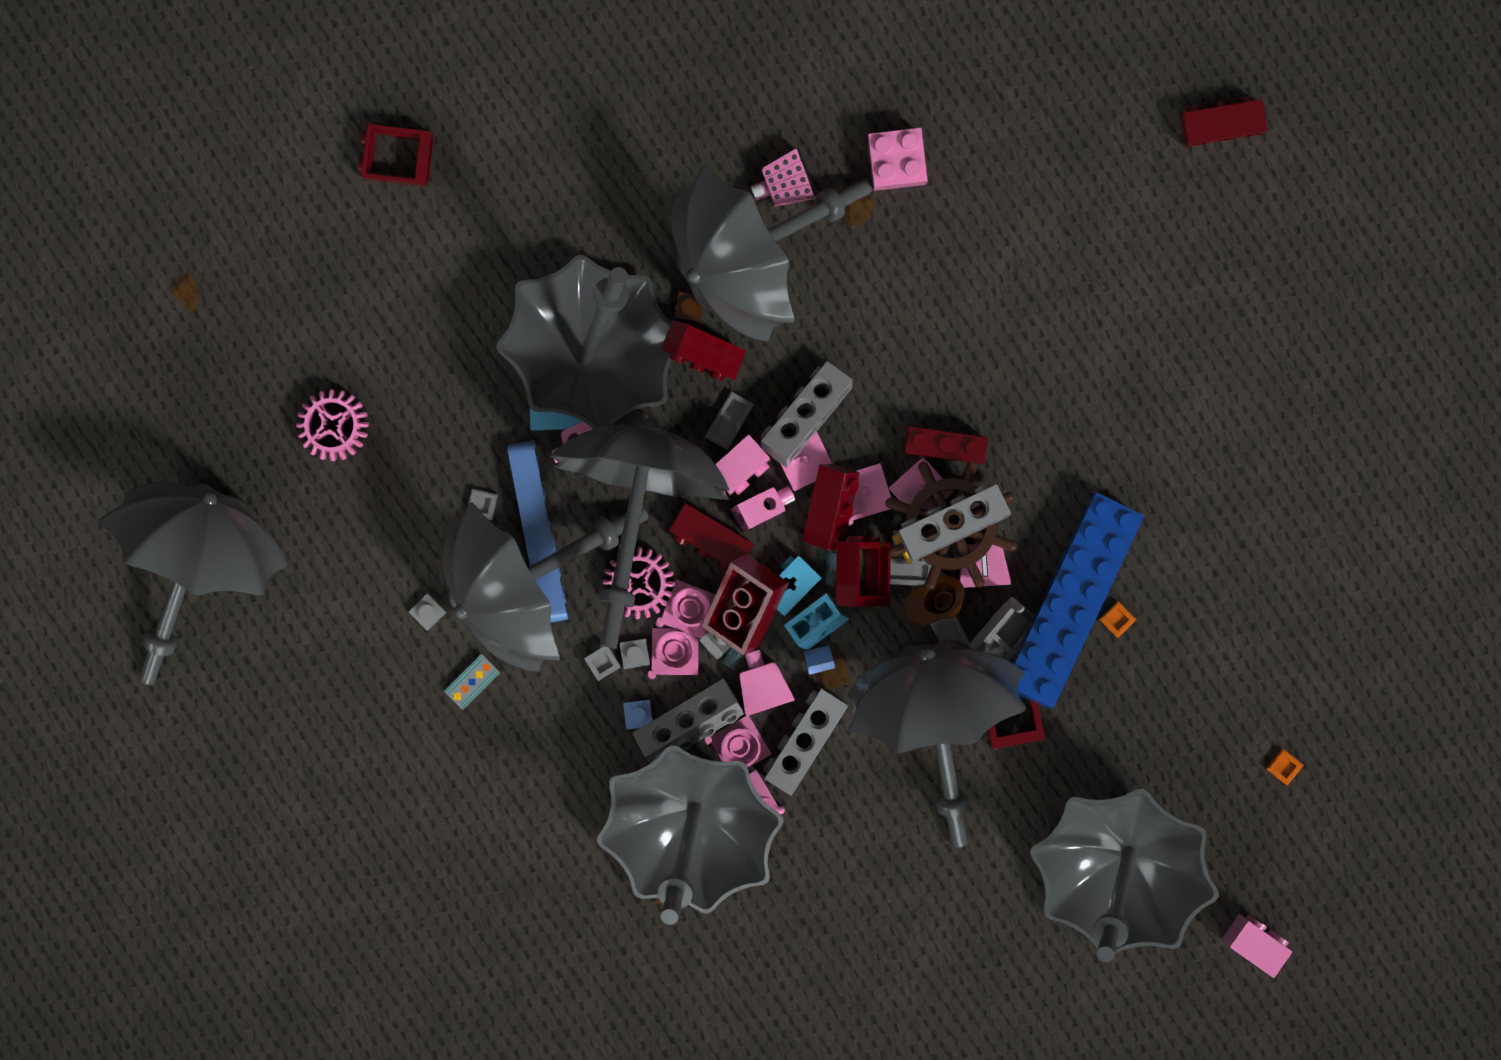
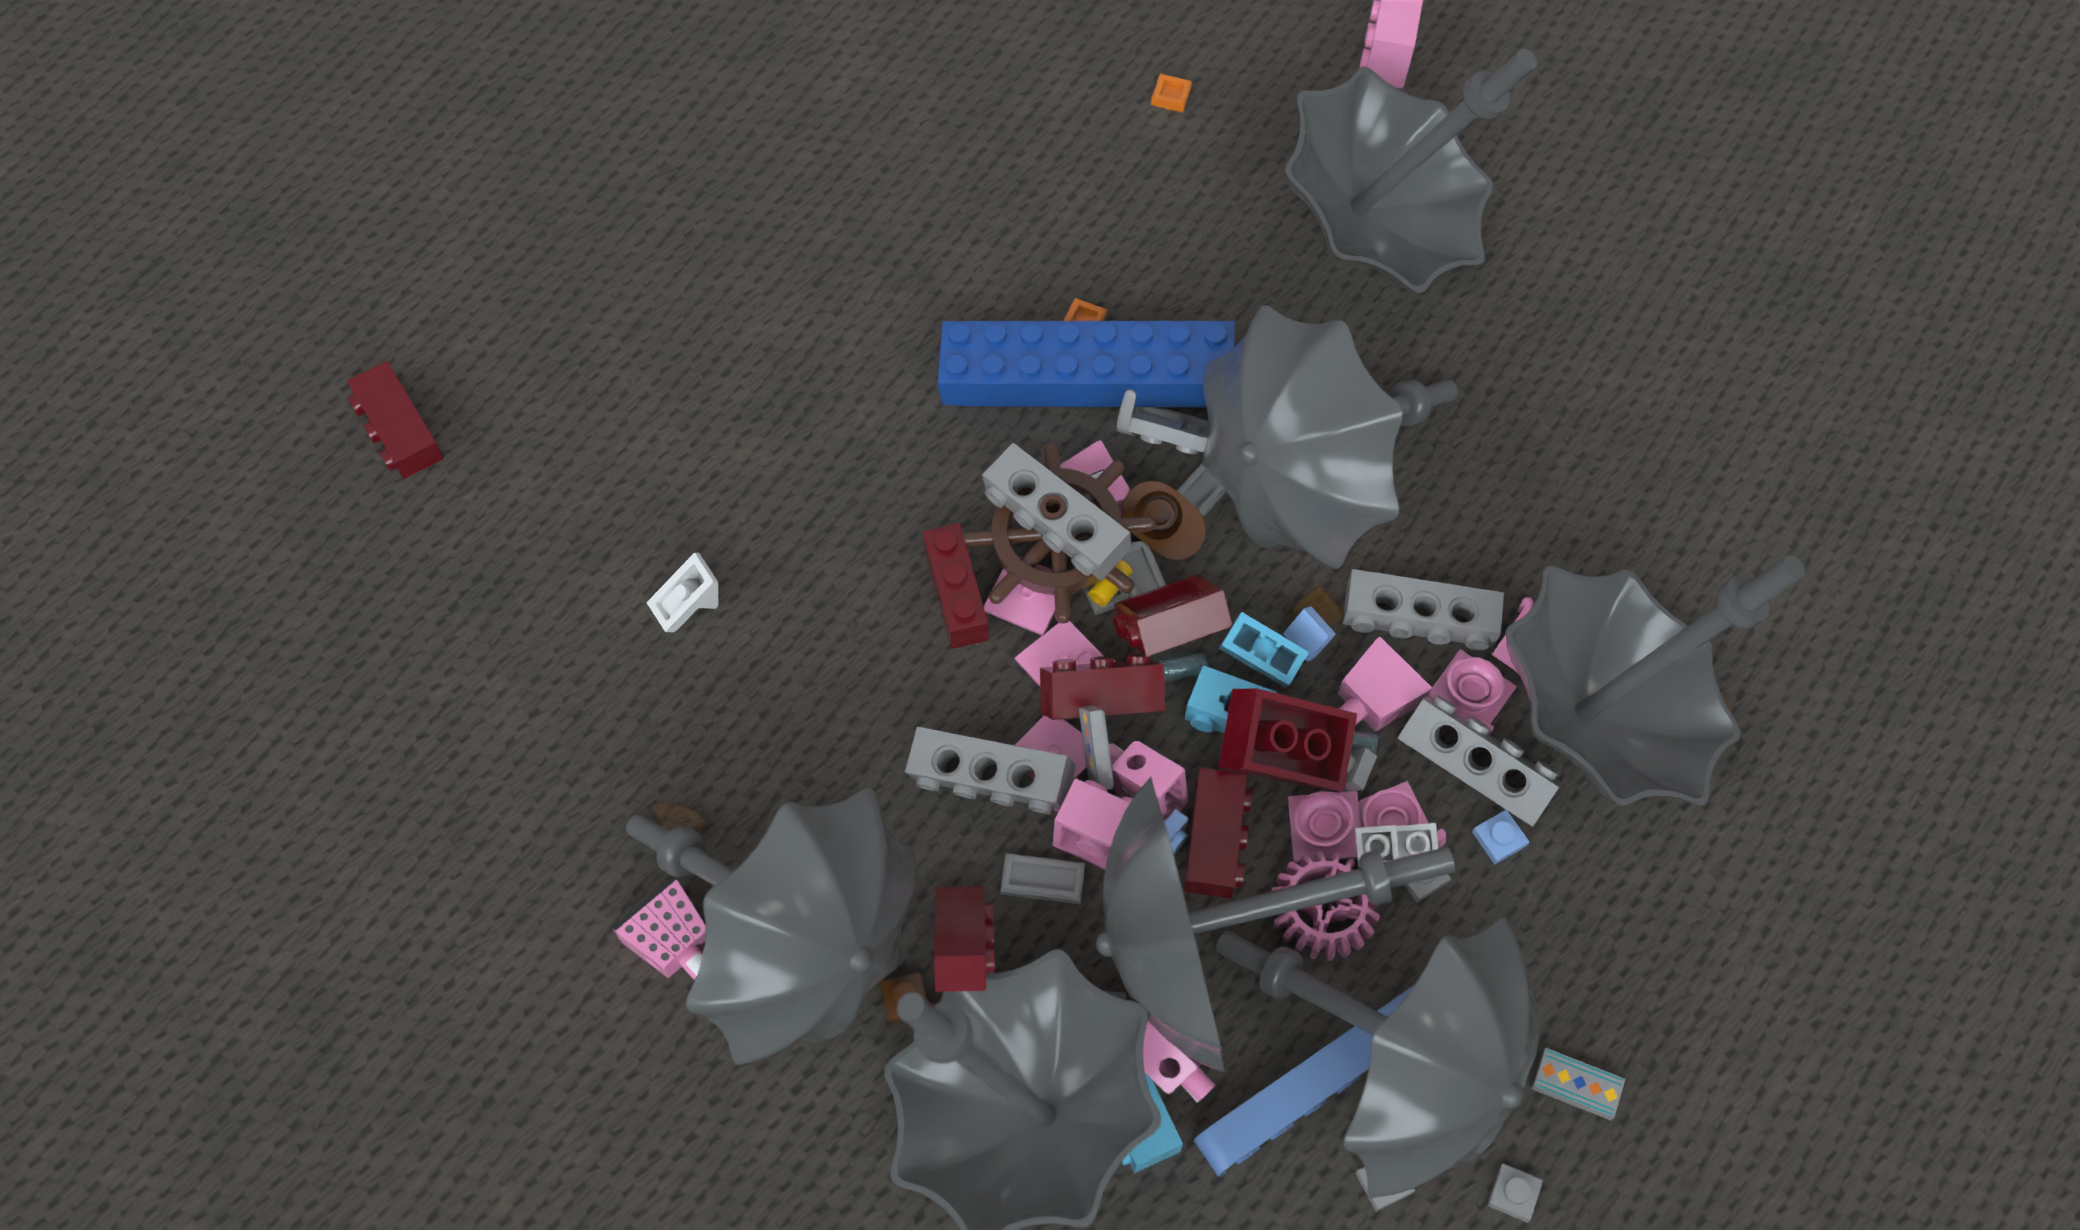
camera: 120 degrees left, 25 degrees down
(484, 501) = (1321, 1179): light grey tile -> none
(602, 662) = (1457, 911): light grey plate -> none
(653, 642) = (1396, 841): none -> white slope
(721, 510) = (1176, 828): none -> light blue plate
(790, 484) = (1096, 745): none -> light grey tile
(897, 159) = (583, 794): bright pink brick -> none
(1010, 268) = (686, 591): none -> white slope

